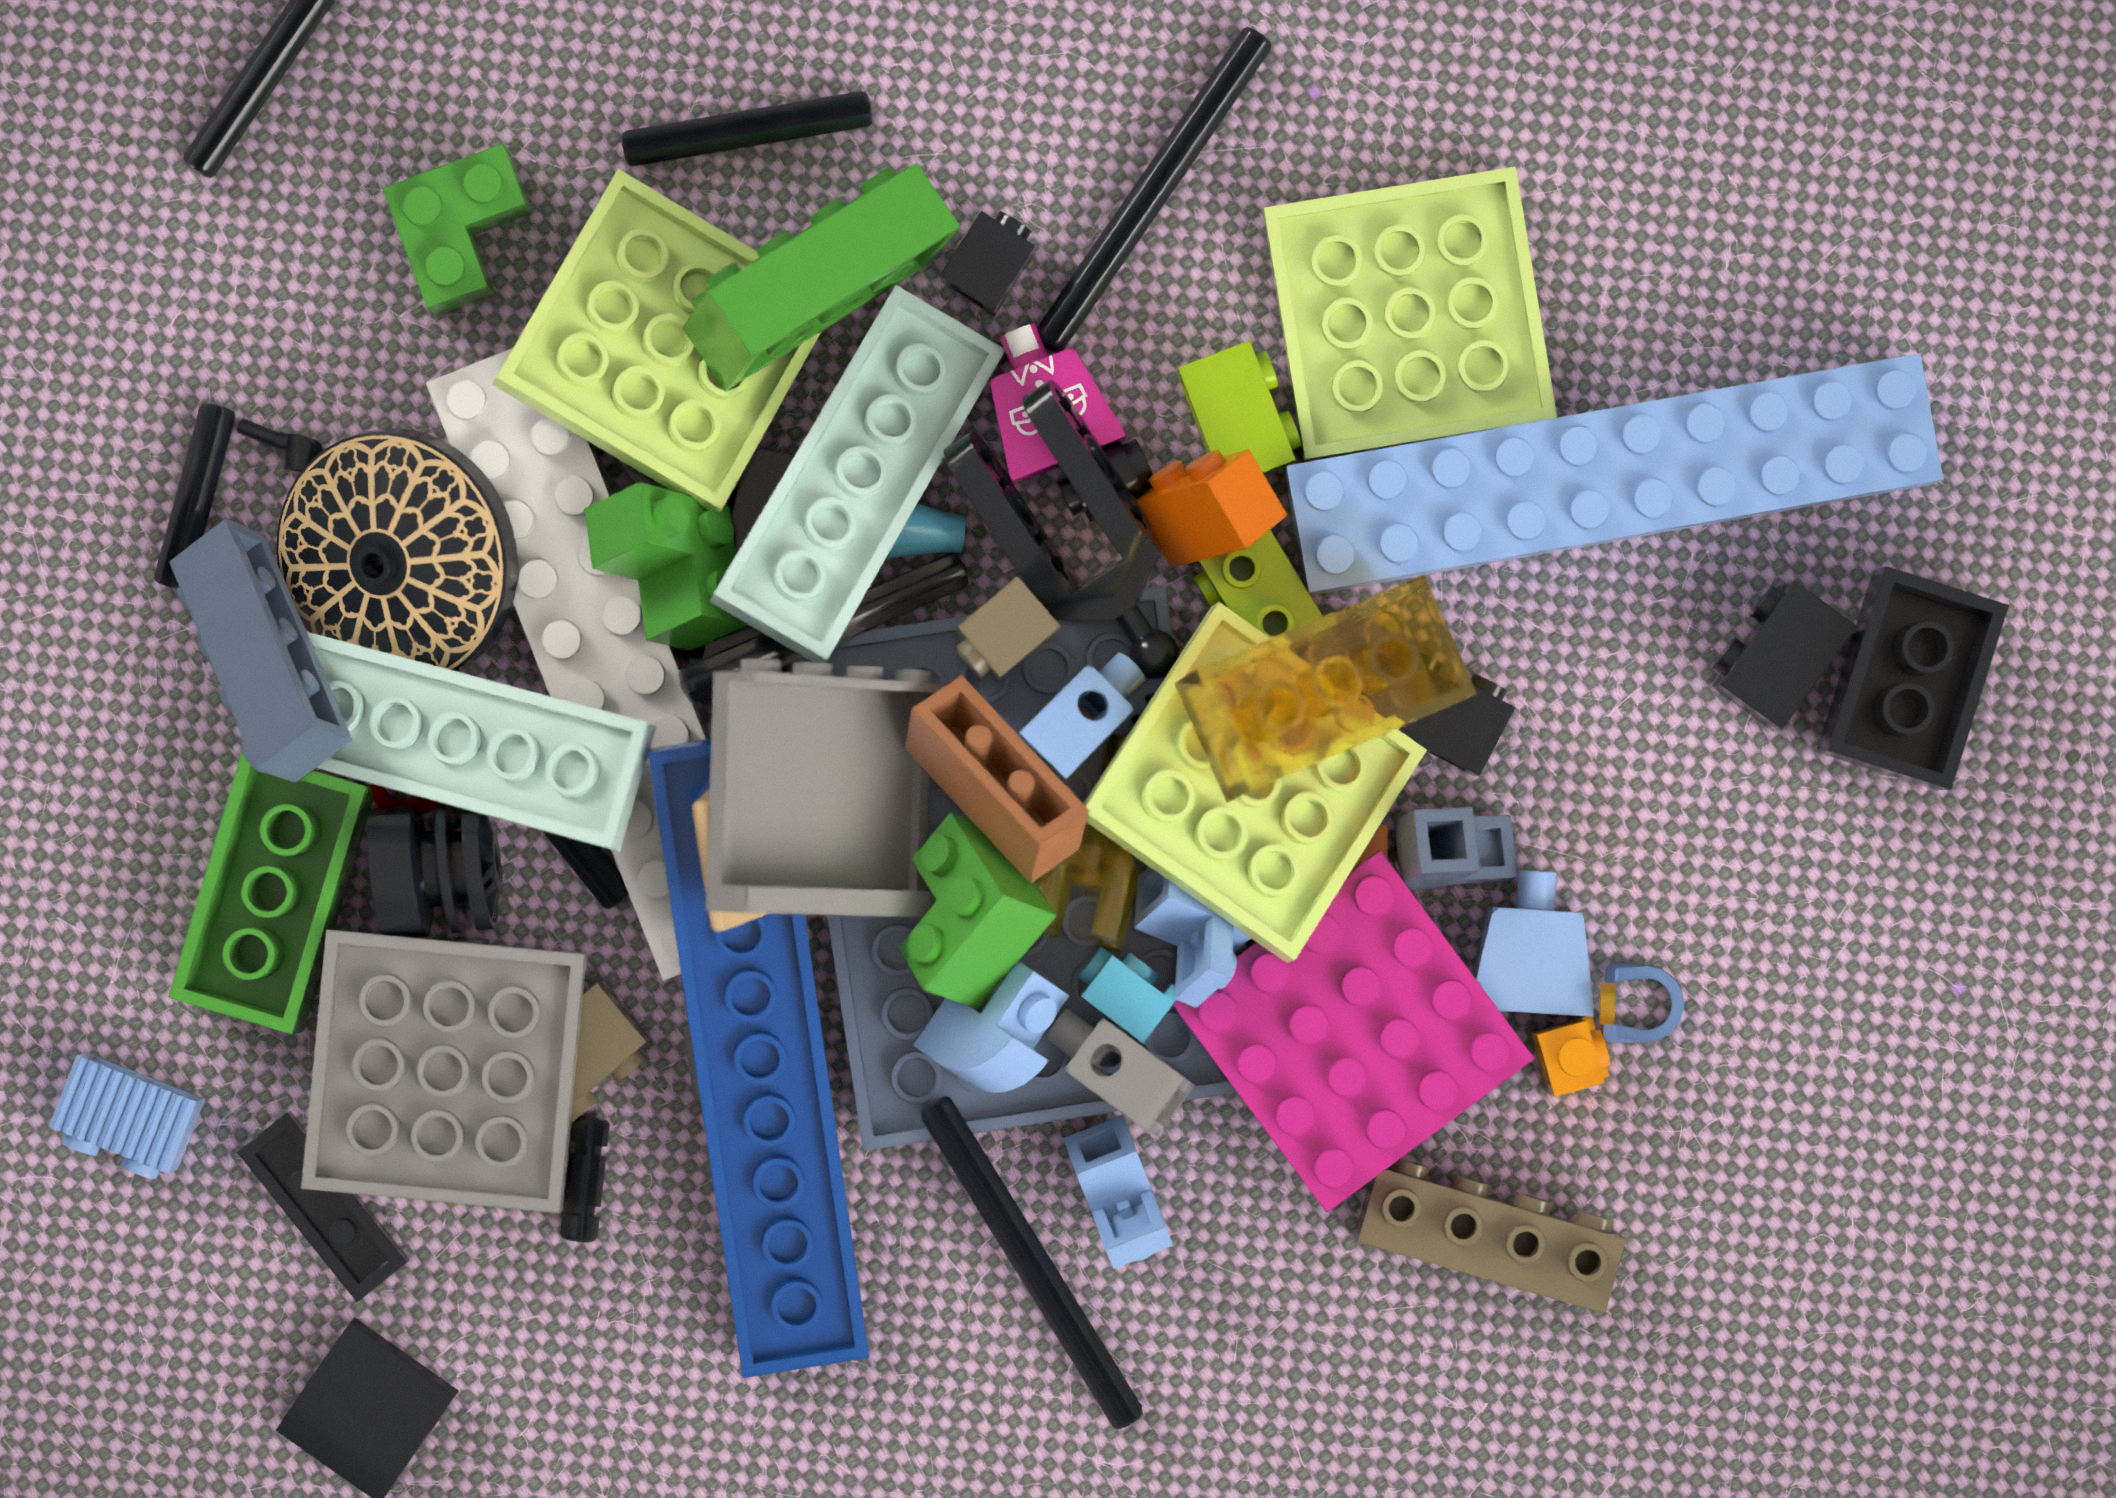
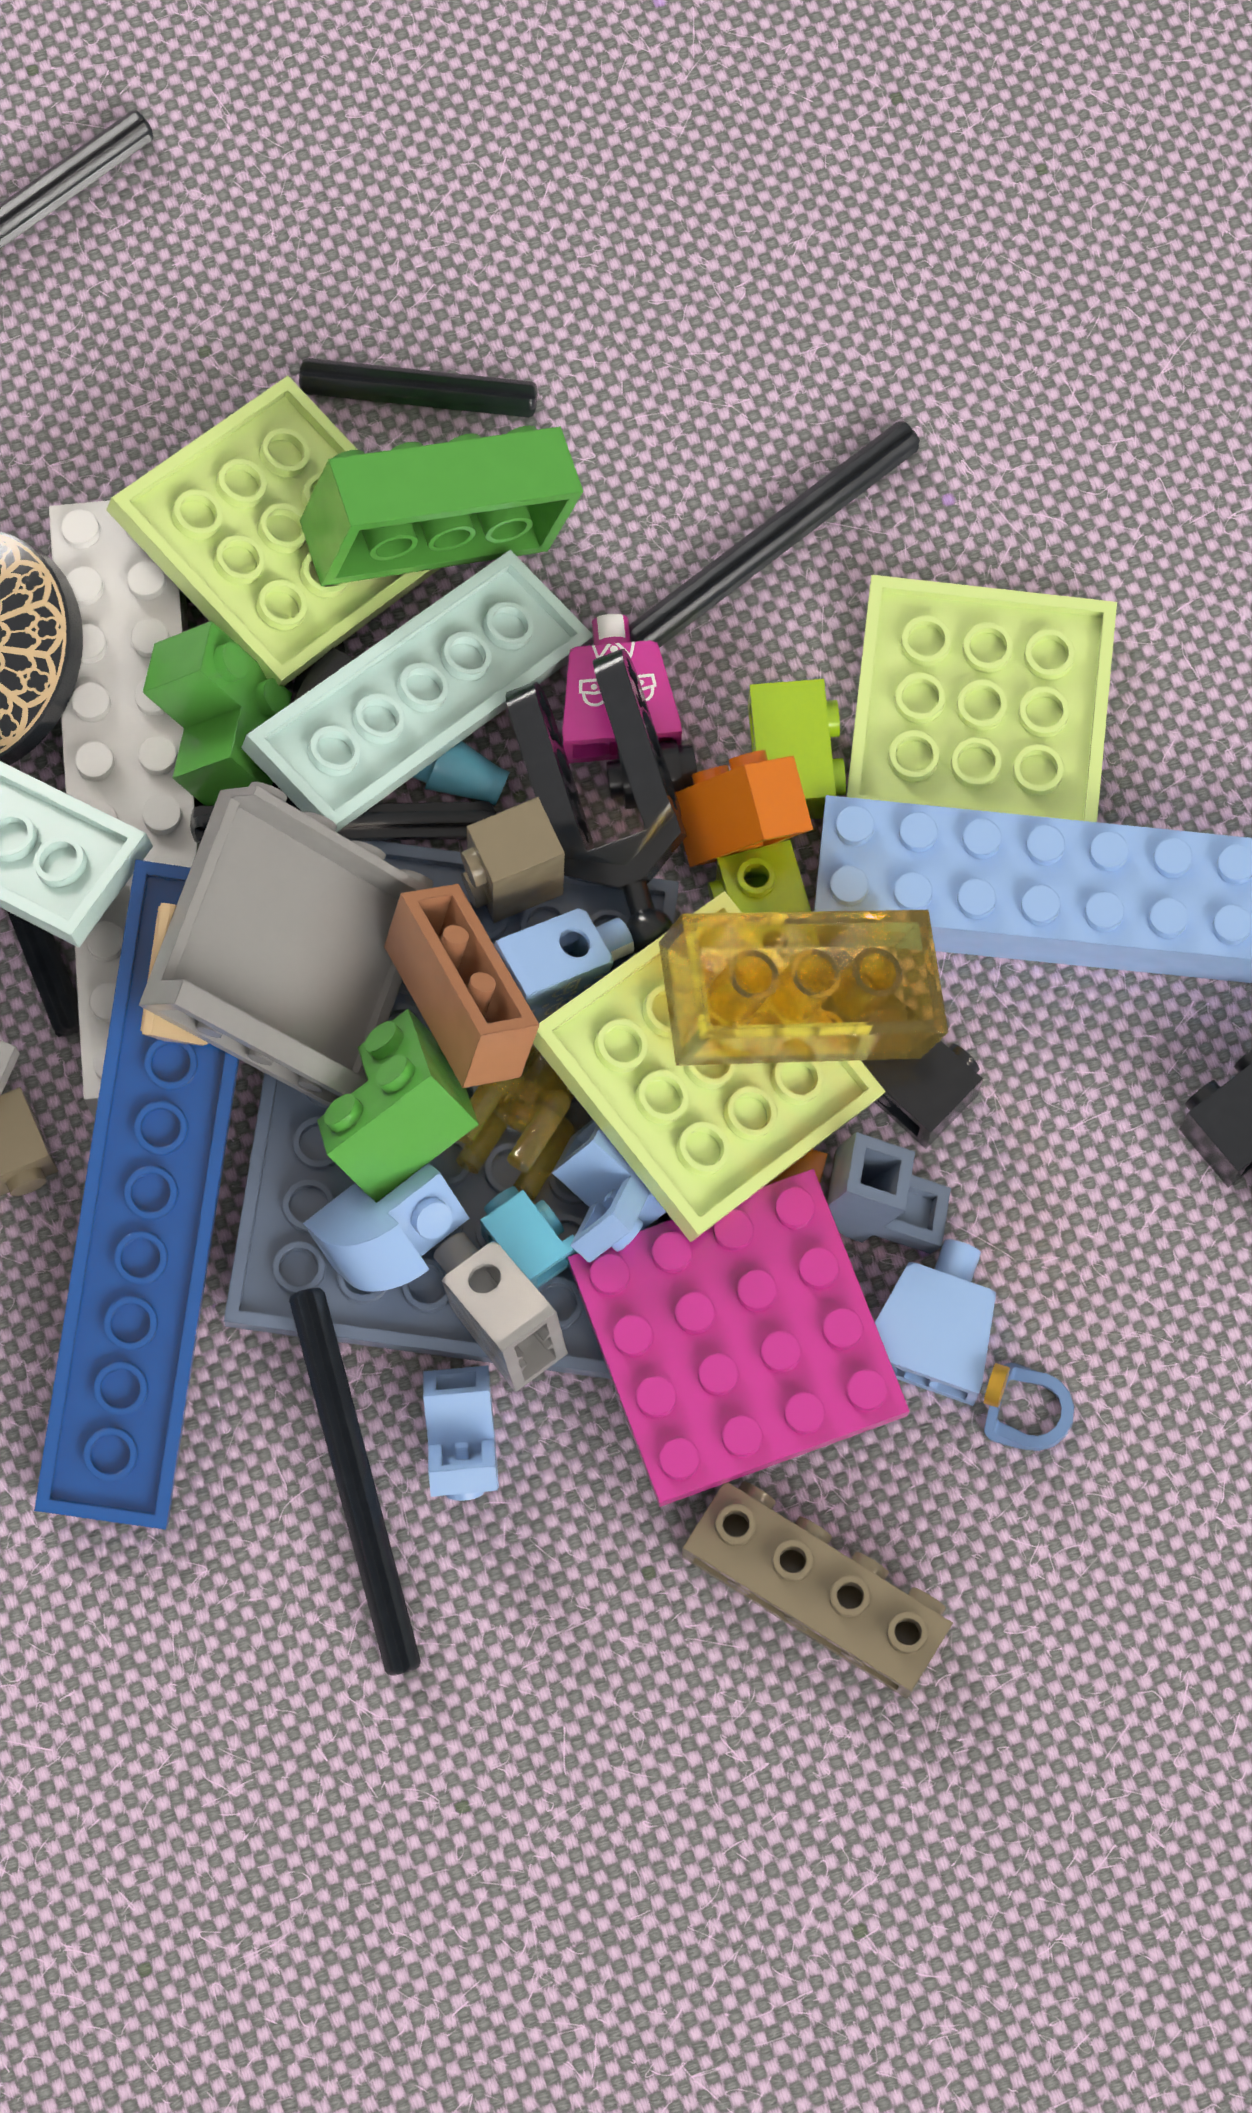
camera: 15 degrees right, 15 degrees down
(443, 212) = (124, 377): bright green brick -> none
(989, 261) = (602, 555): black brick -> none
(1571, 1055) = (947, 1432): light orange brick -> none

